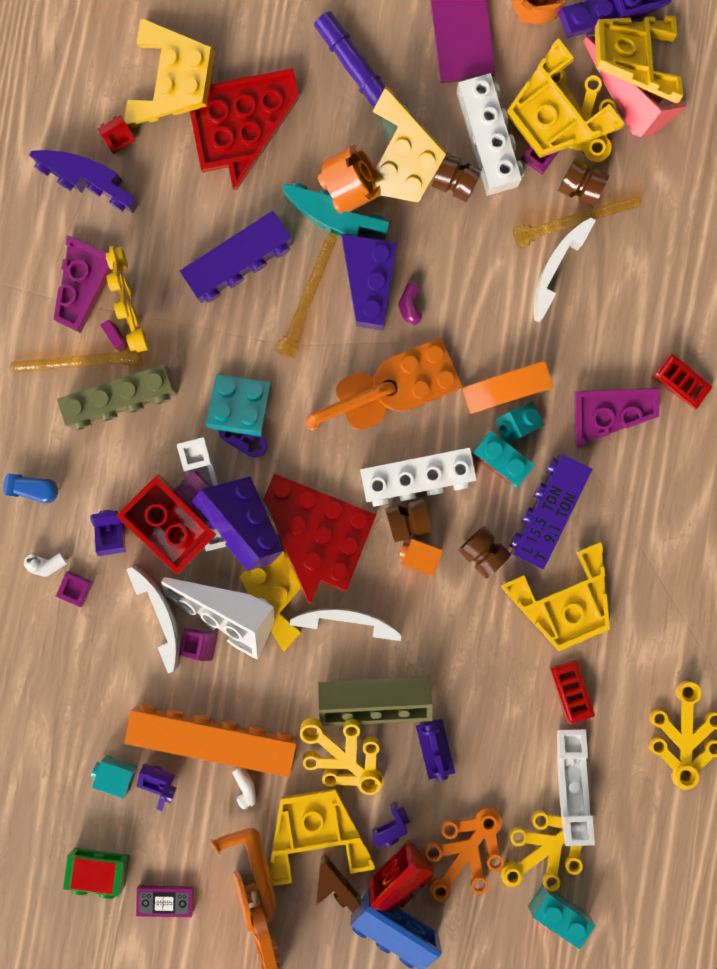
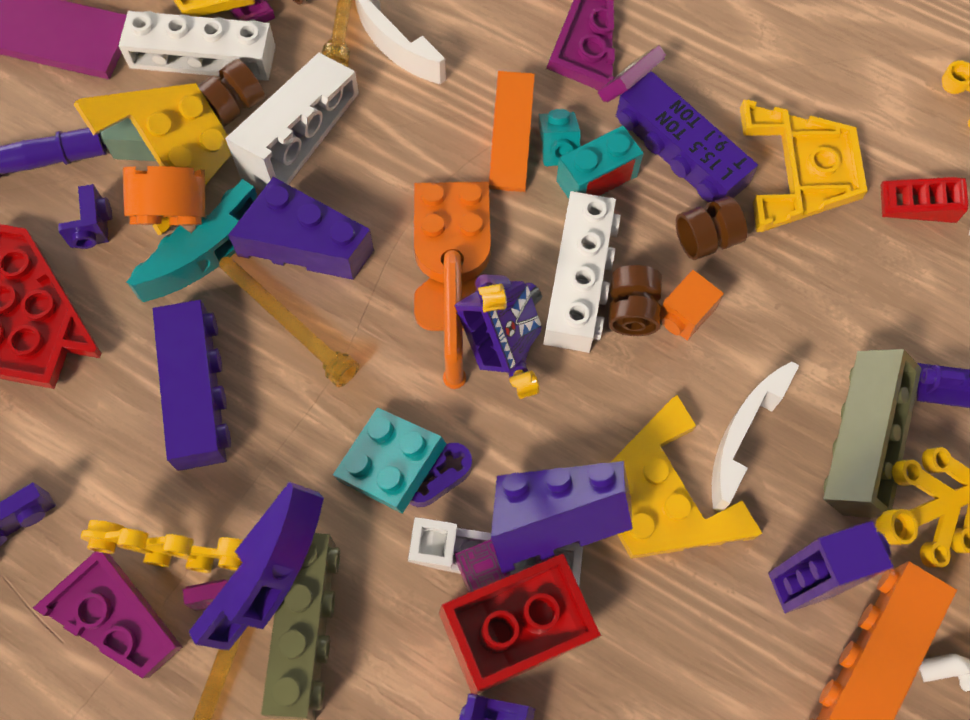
camera: 70 degrees left, 20 degrees down
(135, 366) = (269, 567): none -> dark purple slope
(169, 651) = (705, 697): white slope -> none
(198, 644) = (711, 659): magenta slope -> none
(234, 613) = (688, 579): white wedge -> none
(260, 695) = (831, 566): none -> dark purple brick
(317, 533) = (613, 415): red wing -> none
(329, 133) = (93, 225): none -> dark purple bracket
(350, 440) = (502, 327): none -> torso
(407, 305) = (359, 206): magenta arm -> none
(452, 234) = (292, 122): none -> white wedge
(588, 455) = (632, 74): none -> magenta tile

